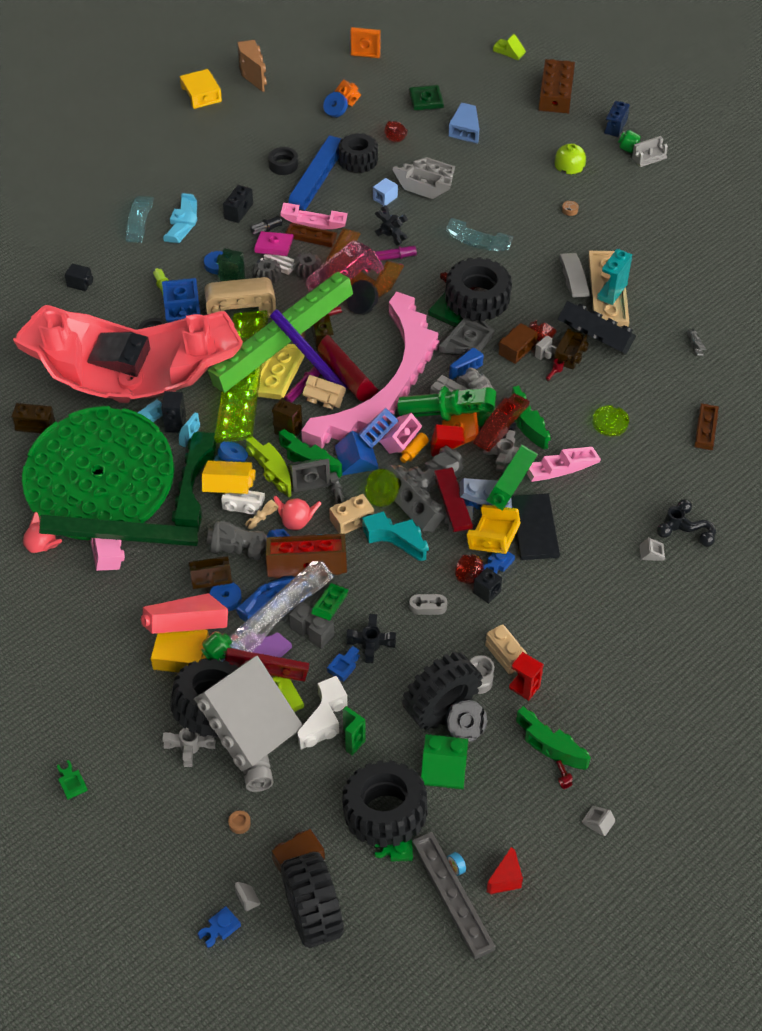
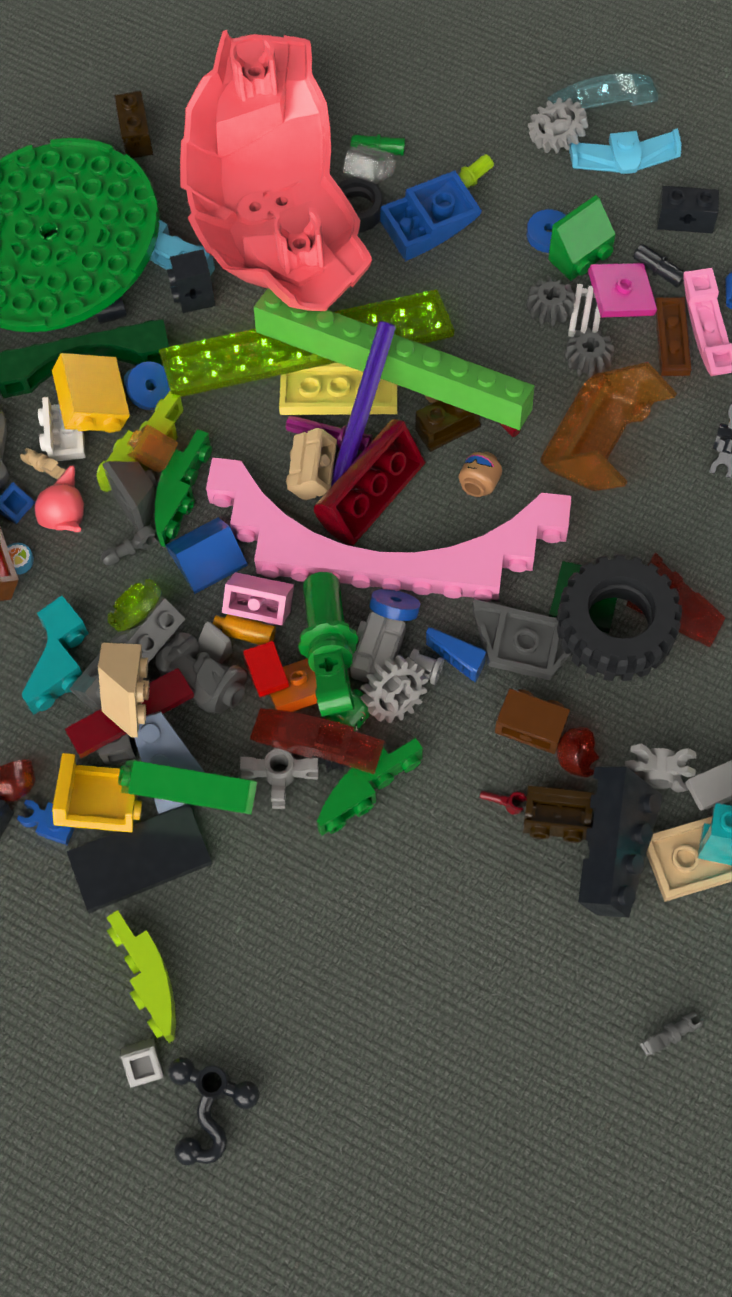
camera: 75 degrees right, 15 degrees up
(78, 277) = (433, 69): black brick -> none
(117, 313) = (388, 144): none -> green axle
(120, 352) = (280, 174): black slope -> none
(134, 315) = (369, 163): none -> clear brick
(152, 236) = (558, 125): none -> light grey gear
(188, 429) = (166, 312): medium azure slope -> none
(231, 265) = (525, 241): clear green brick -> none
(235, 240) = (581, 239): none -> slope
(240, 294) = (472, 284): tan windscreen -> none
(286, 450) = (151, 448): none -> clear orange brick
(287, 417) = (225, 429): dark brown hinge -> none
(347, 261) = (564, 395): clear pink windscreen -> none
(349, 514) = (79, 581): tan brick -> none
(363, 297) = (541, 451): black tile -> none
(363, 326) = (480, 474): none -> medium nougat head
(377, 437) = (242, 559): slope -> none
(397, 253) = (678, 467): magenta axle -> none
(417, 459) = (214, 643): none -> light grey slope
(428, 378) = (394, 605): none -> blue piece
(449, 480) = (123, 686): none -> tan slope
(544, 348) = (543, 767): light grey tile -> none
(561, 298) = (662, 767): none -> light grey pin
(567, 462) = (285, 867): bright pink slope -> none
(610, 420) = (417, 924): clear neon green tile -> none
(612, 531) = (153, 983): none -> lime slope
(706, 426) = (462, 1098): reddish brown tile -> none

